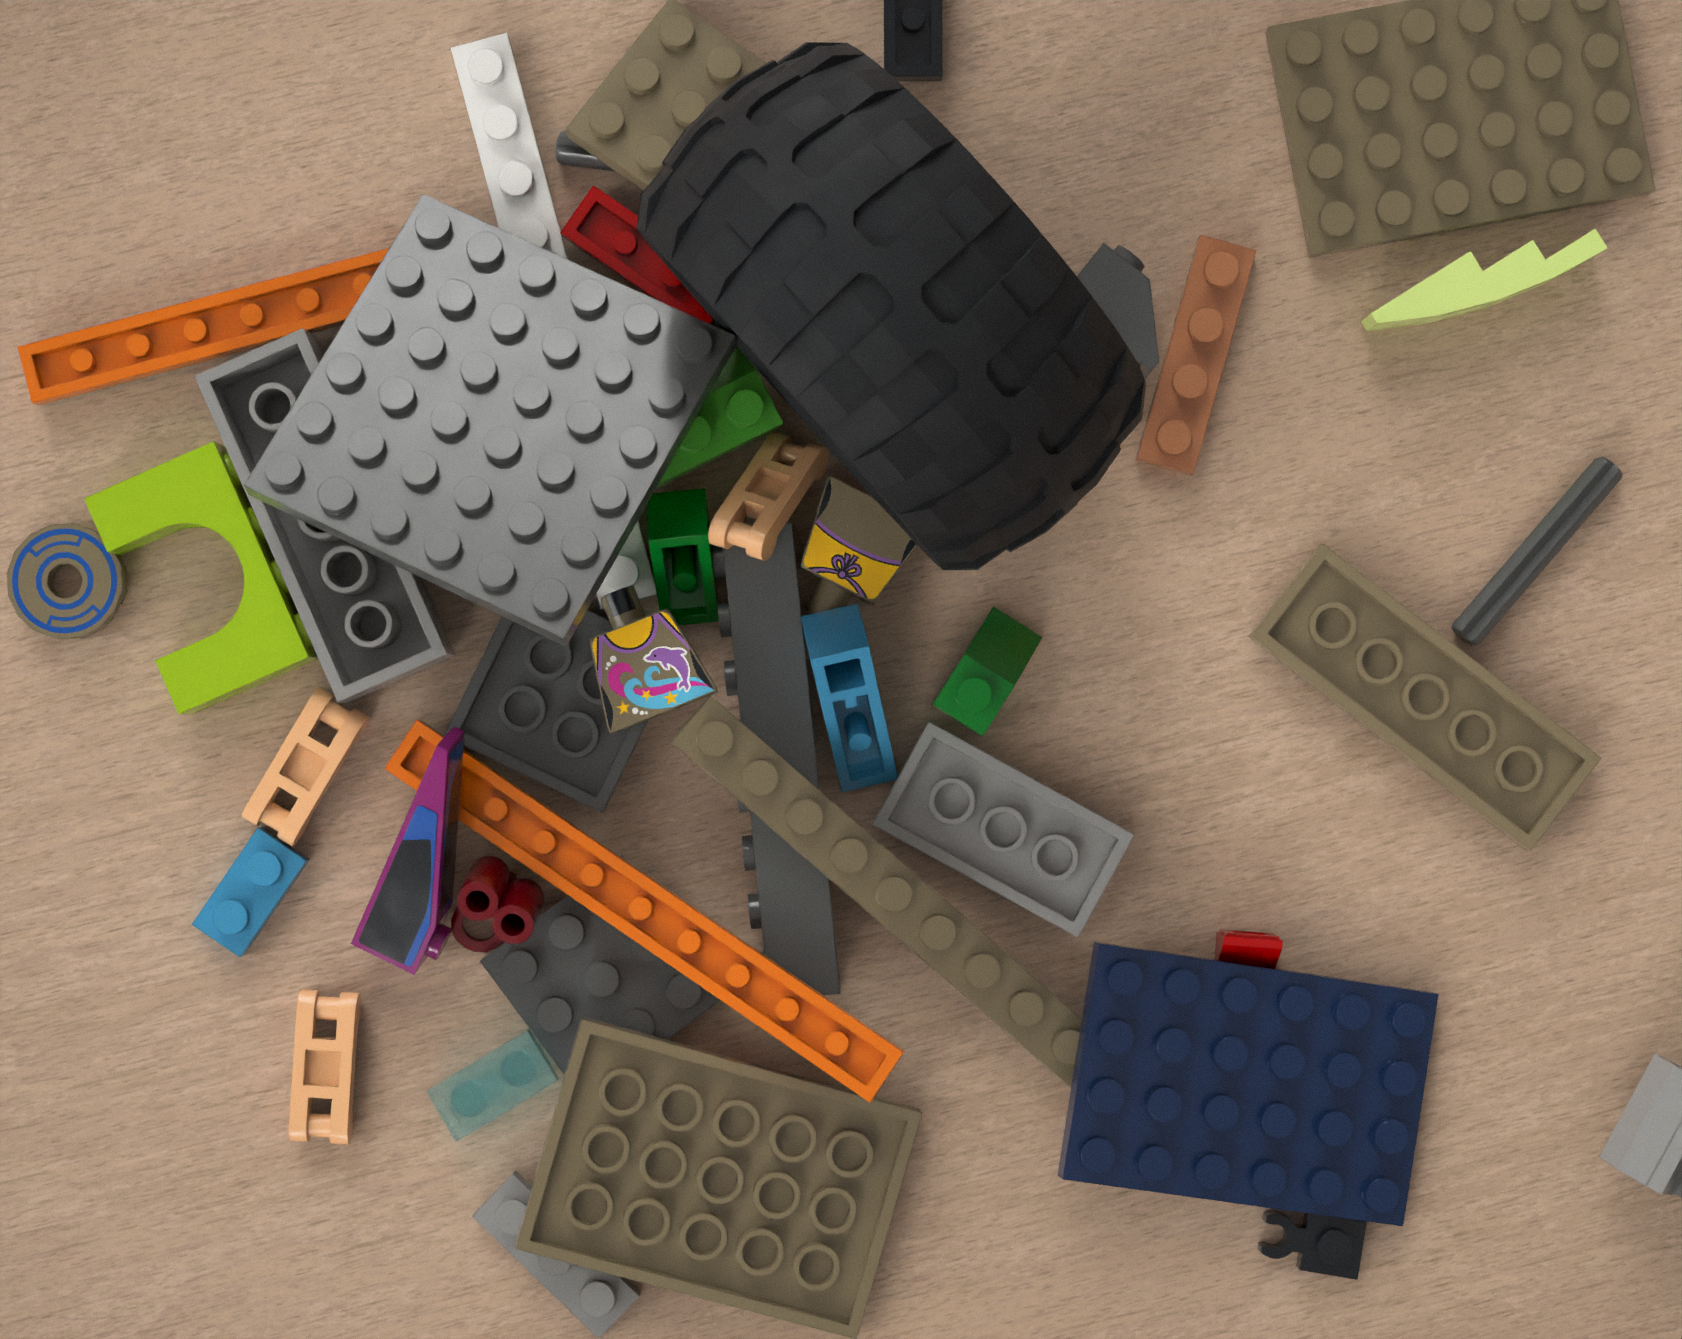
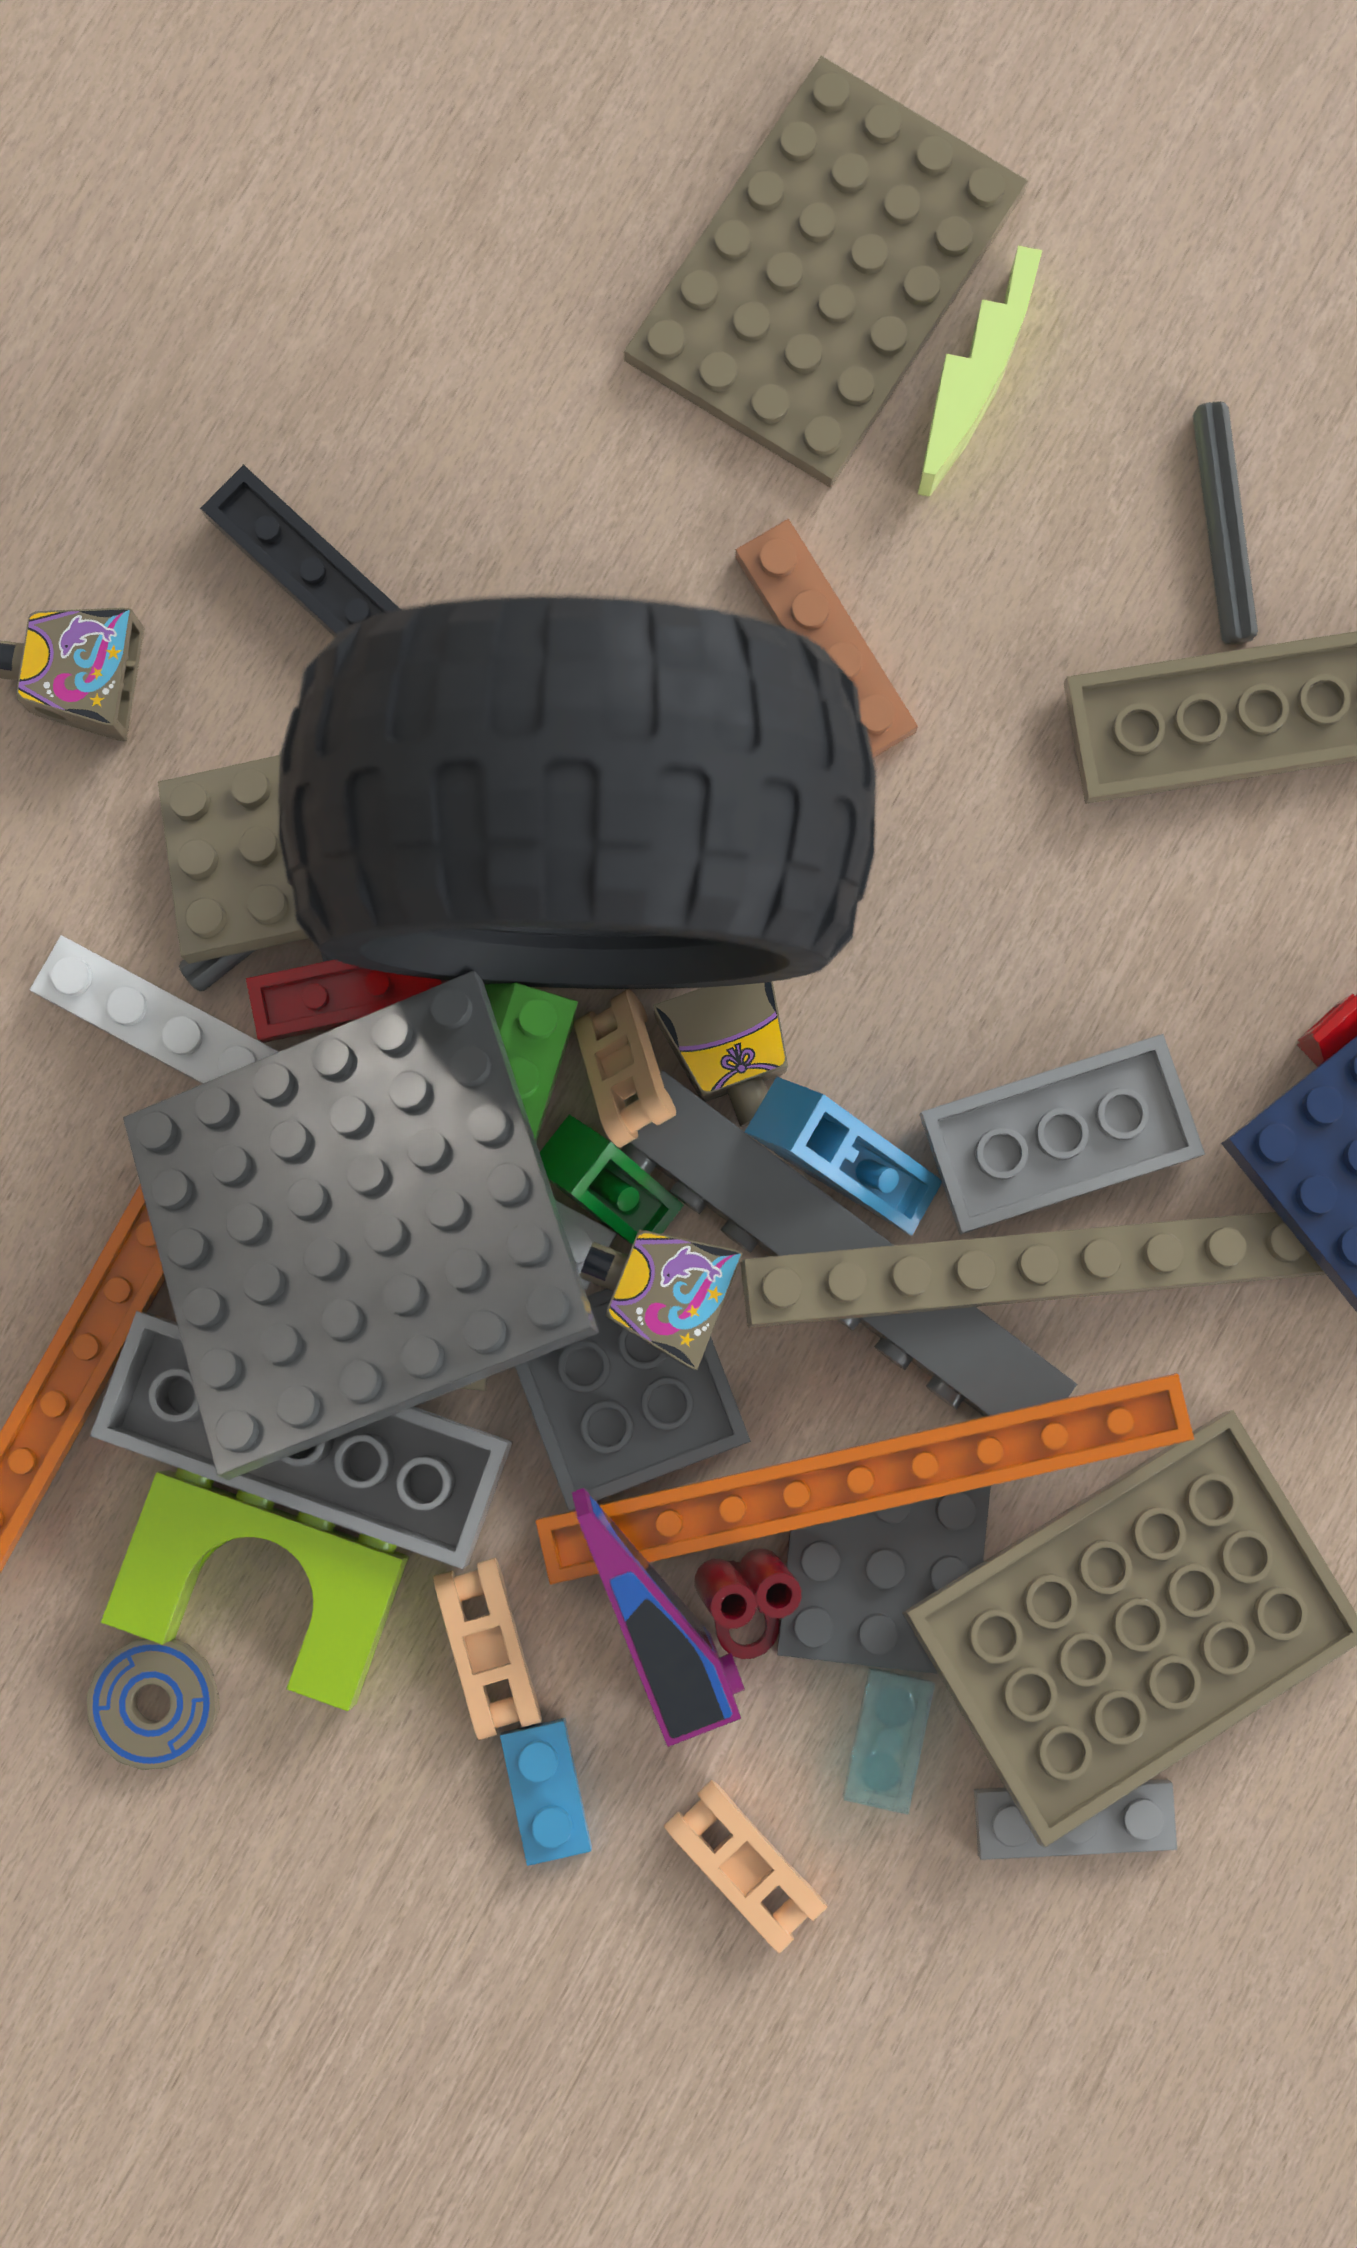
camera: 45 degrees left, 5 degrees down
(987, 671) = (925, 1032): green slope -> none

